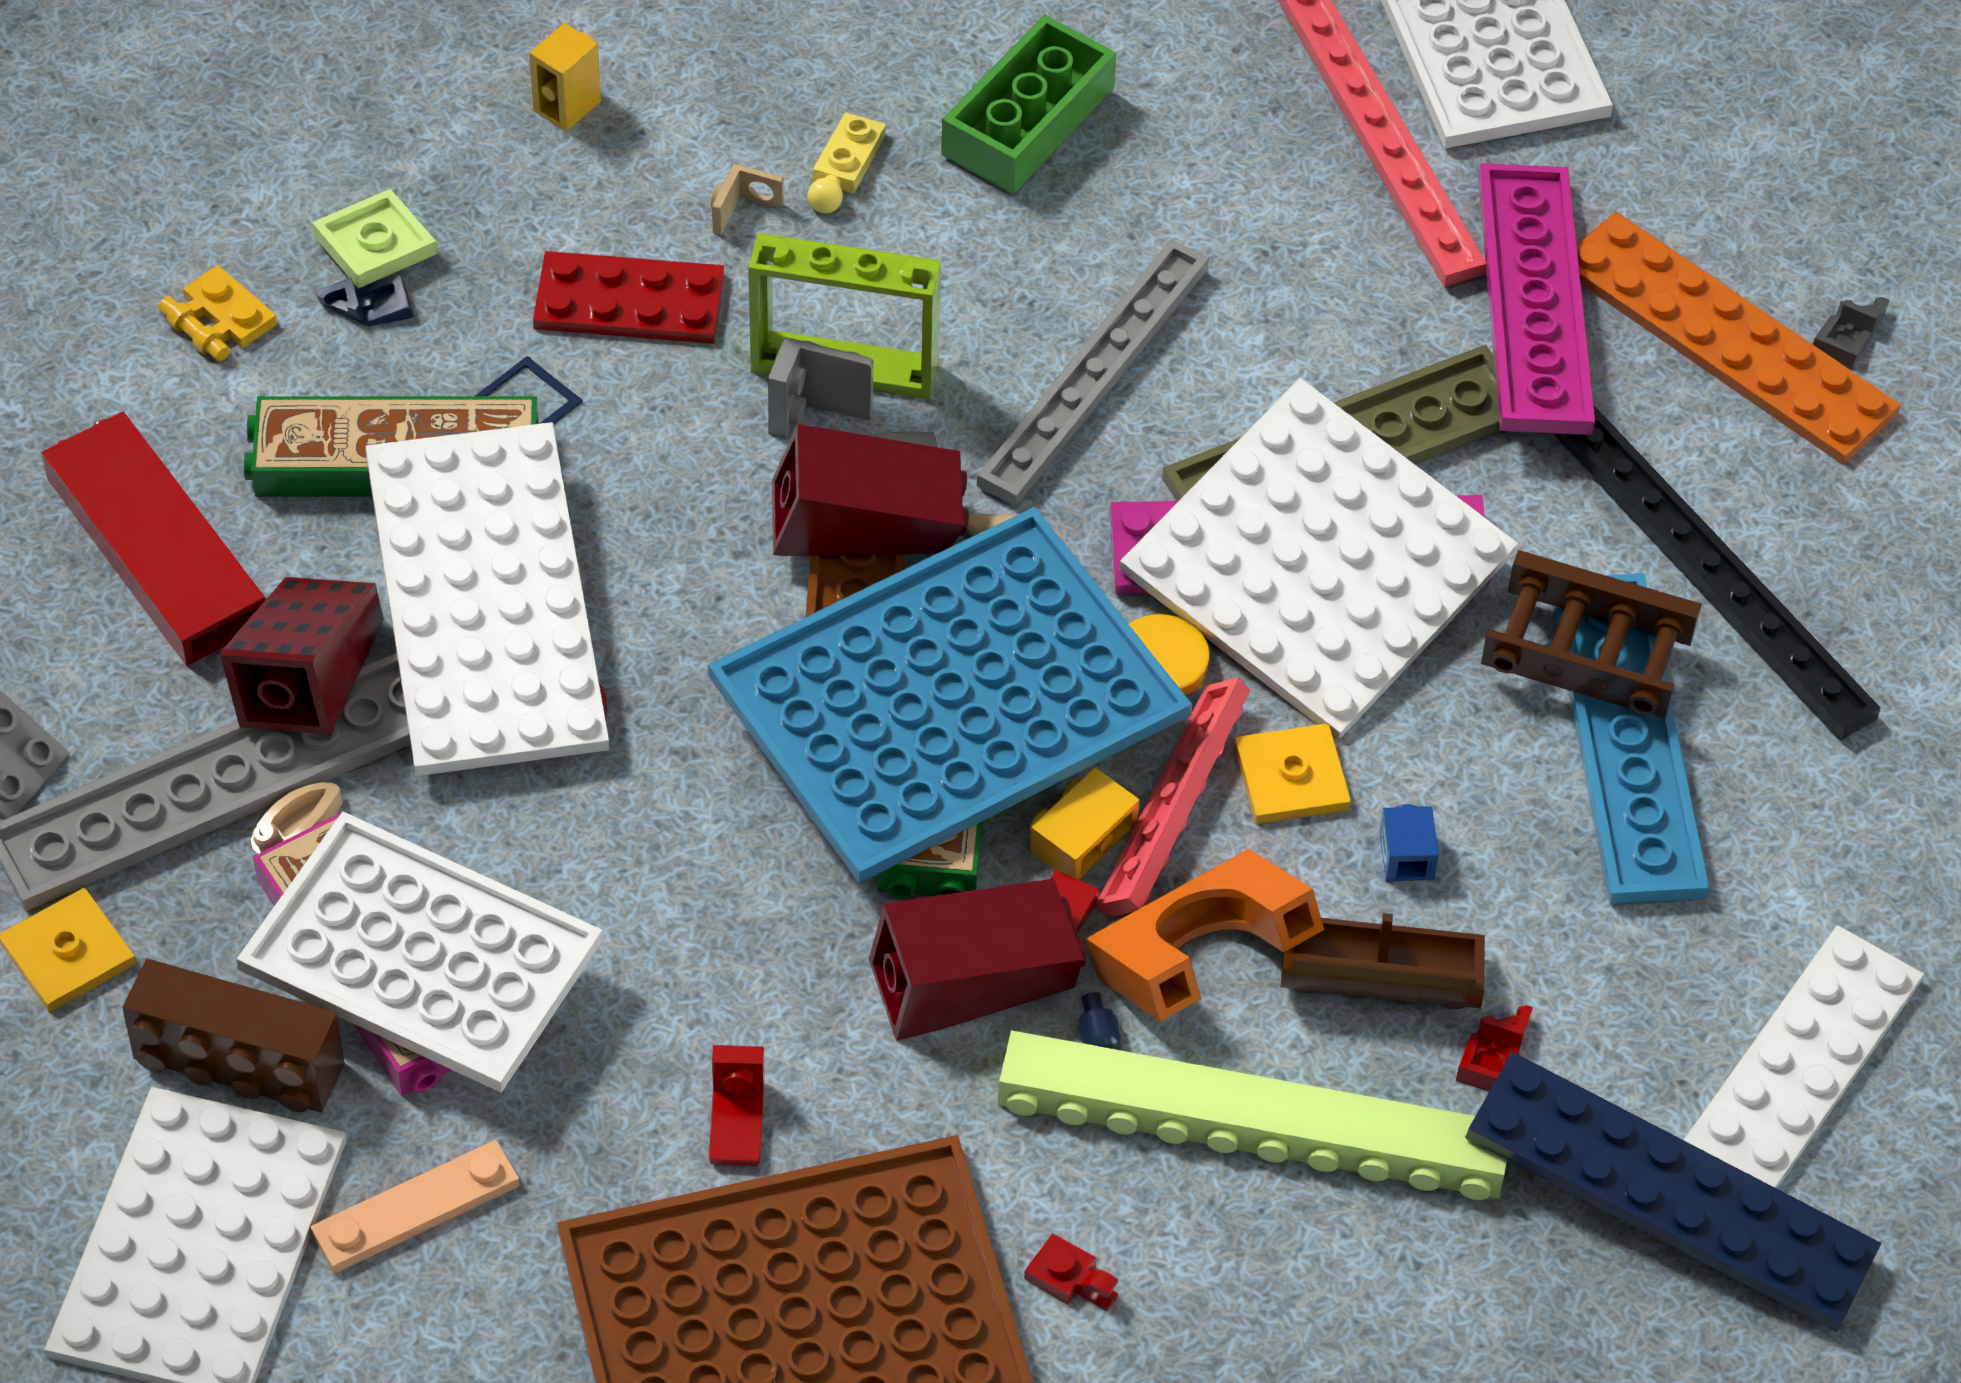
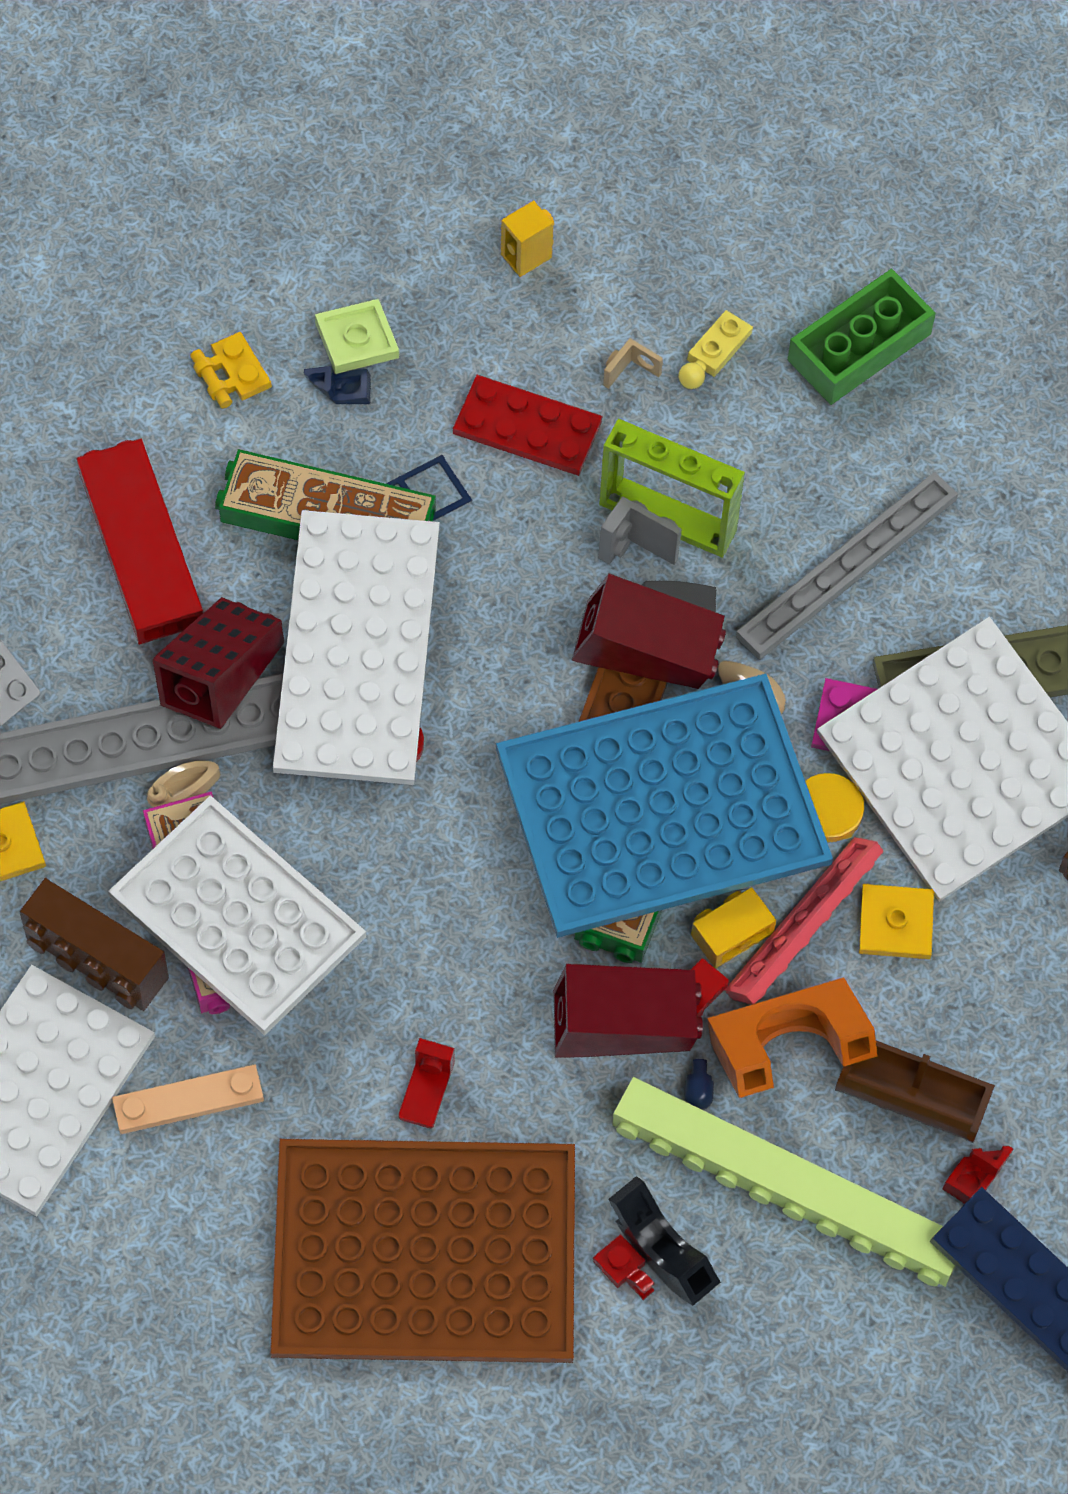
camera: 15 degrees right, 10 degrees up
(1137, 1249) = (664, 1250): none -> black arch
(1408, 843) = (962, 999): blue brick -> none

